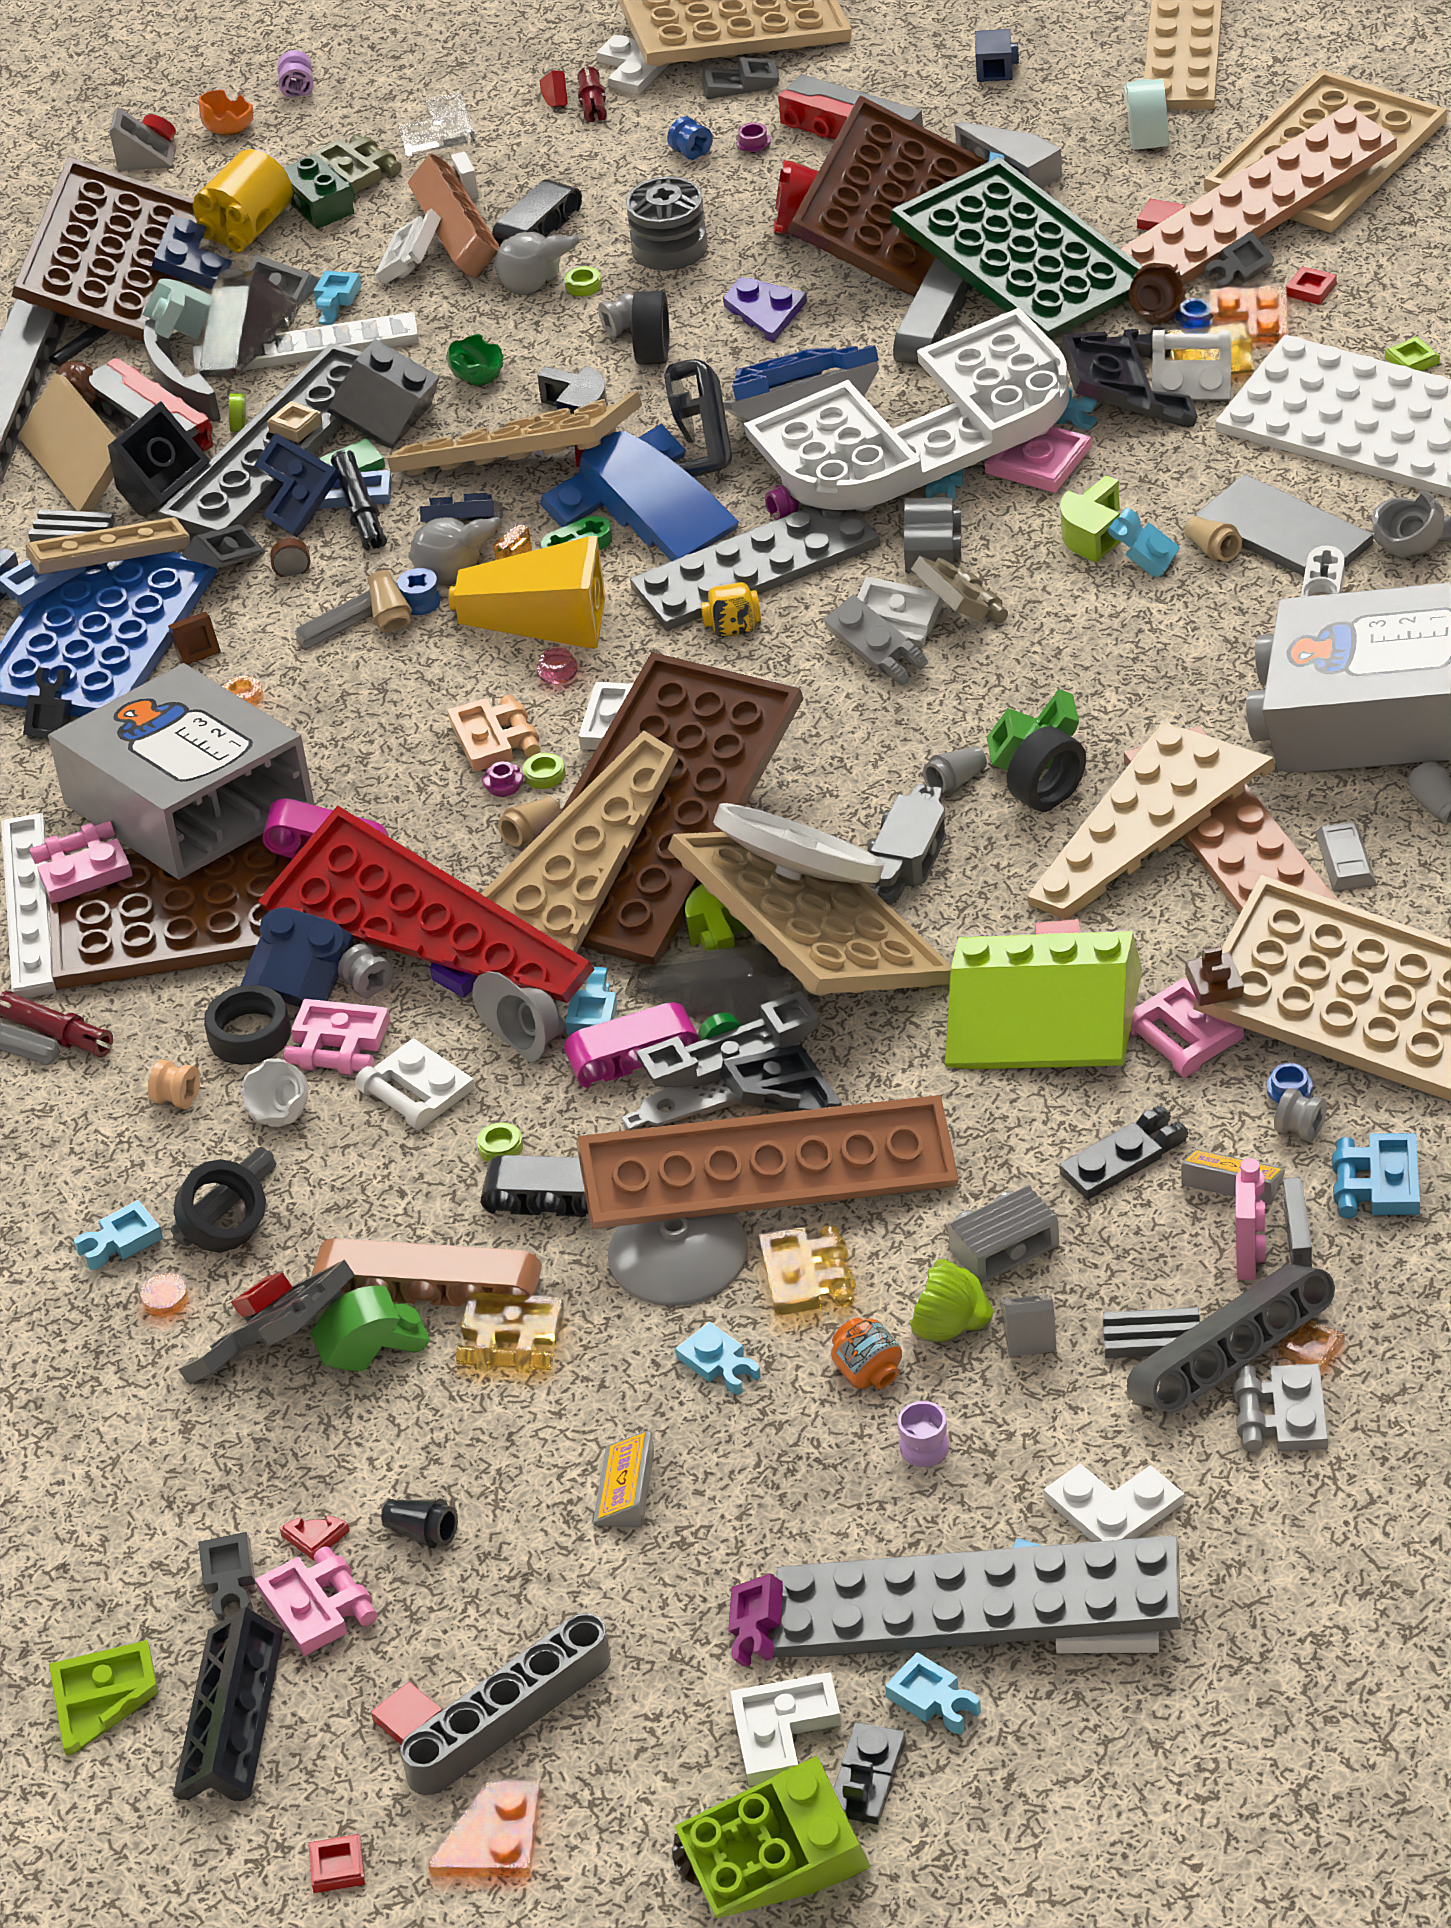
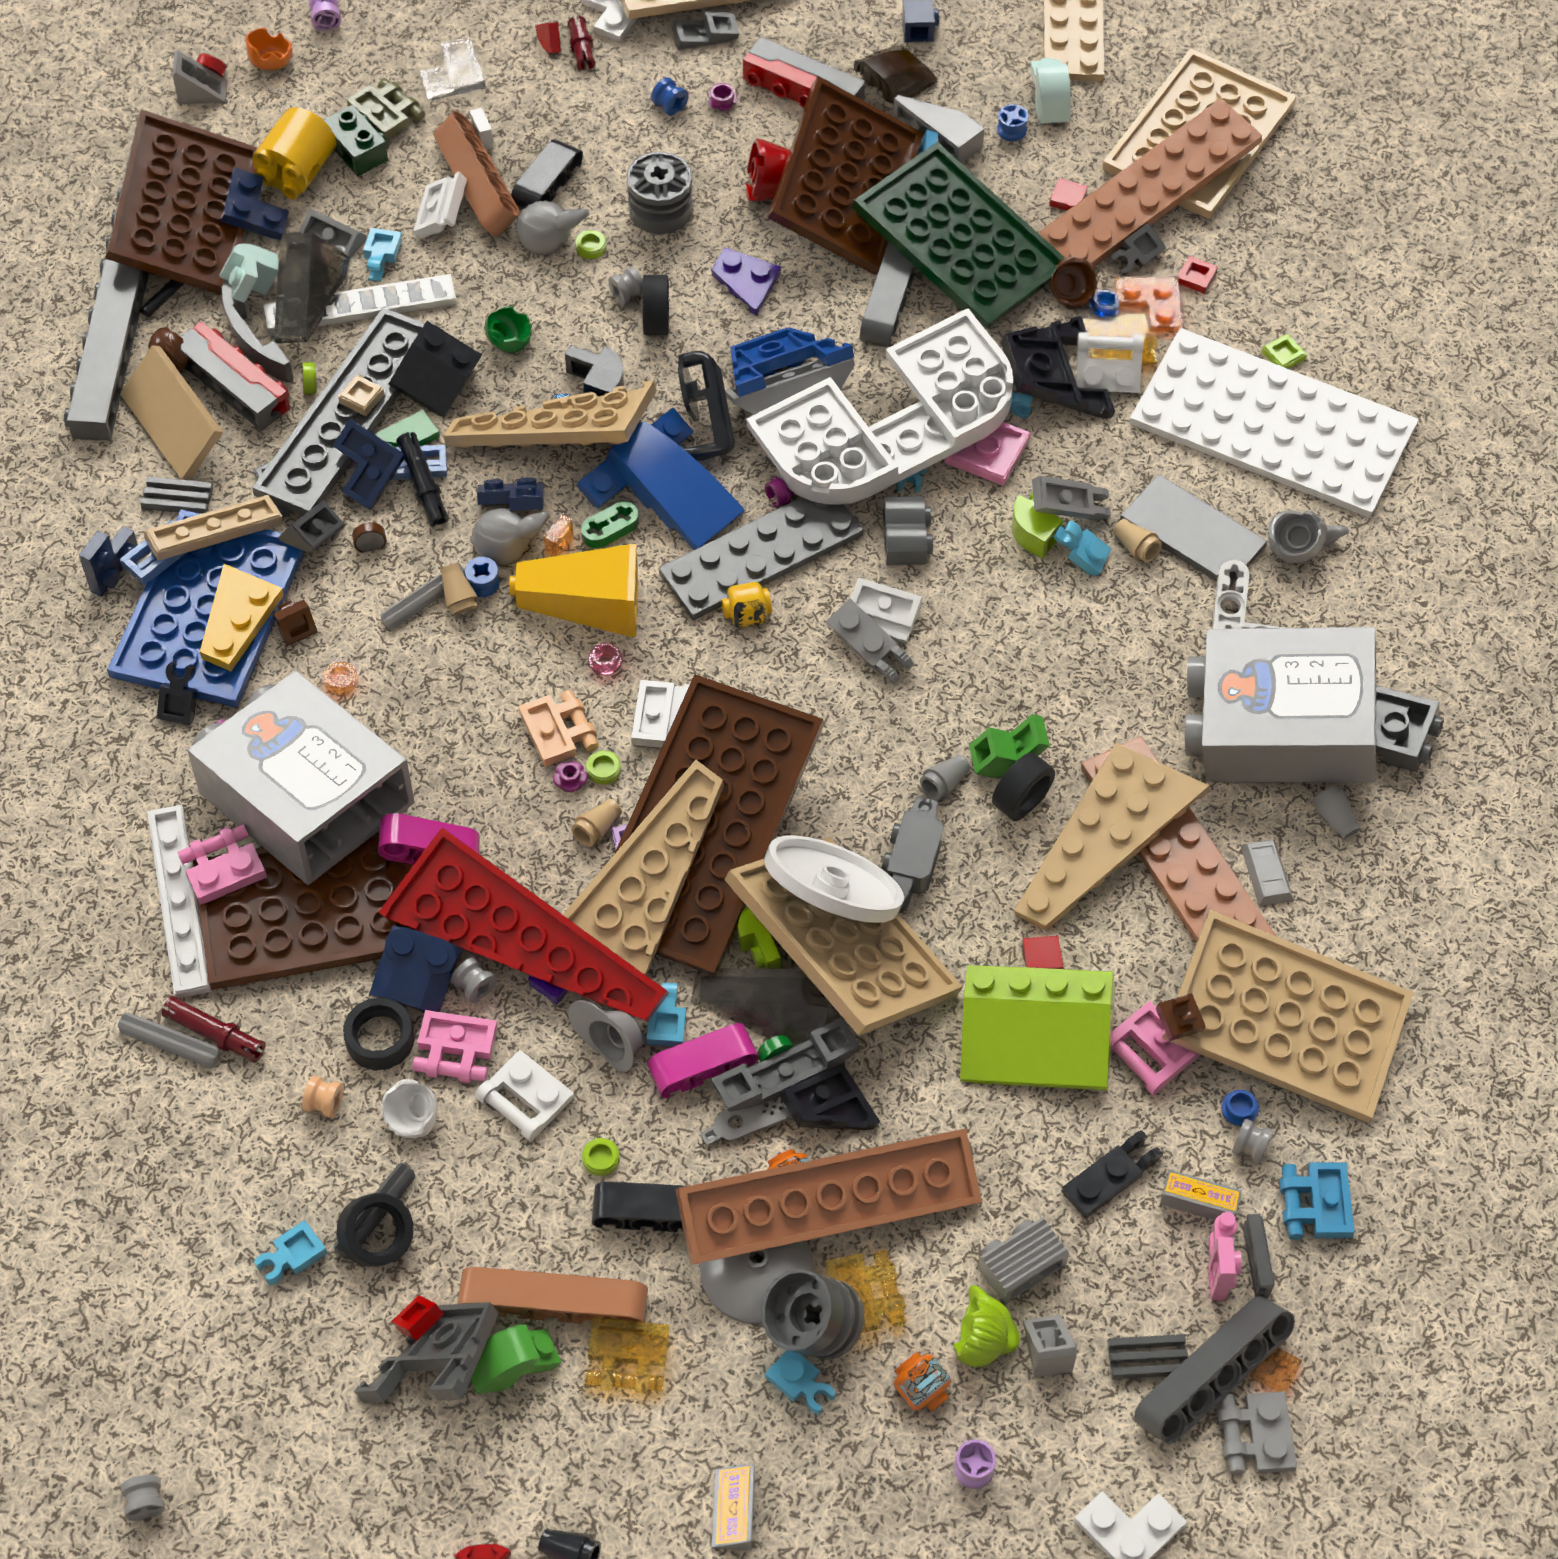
camera: 10 degrees left, 15 degrees up
(126, 630) = (237, 616): none -> yellow wing
(154, 459) = (246, 438): black slope -> none
(164, 1295) = (334, 1313): clear orange tile -> none
(734, 1274) = (812, 1314): none -> dark grey wheel
(960, 102) = (895, 73): none -> dark brown slope
(960, 589) = (936, 593): dark tan plate -> none
(1098, 148) = (1011, 115): none -> blue wheel
(1128, 488) = (1069, 498): none -> light grey hinge

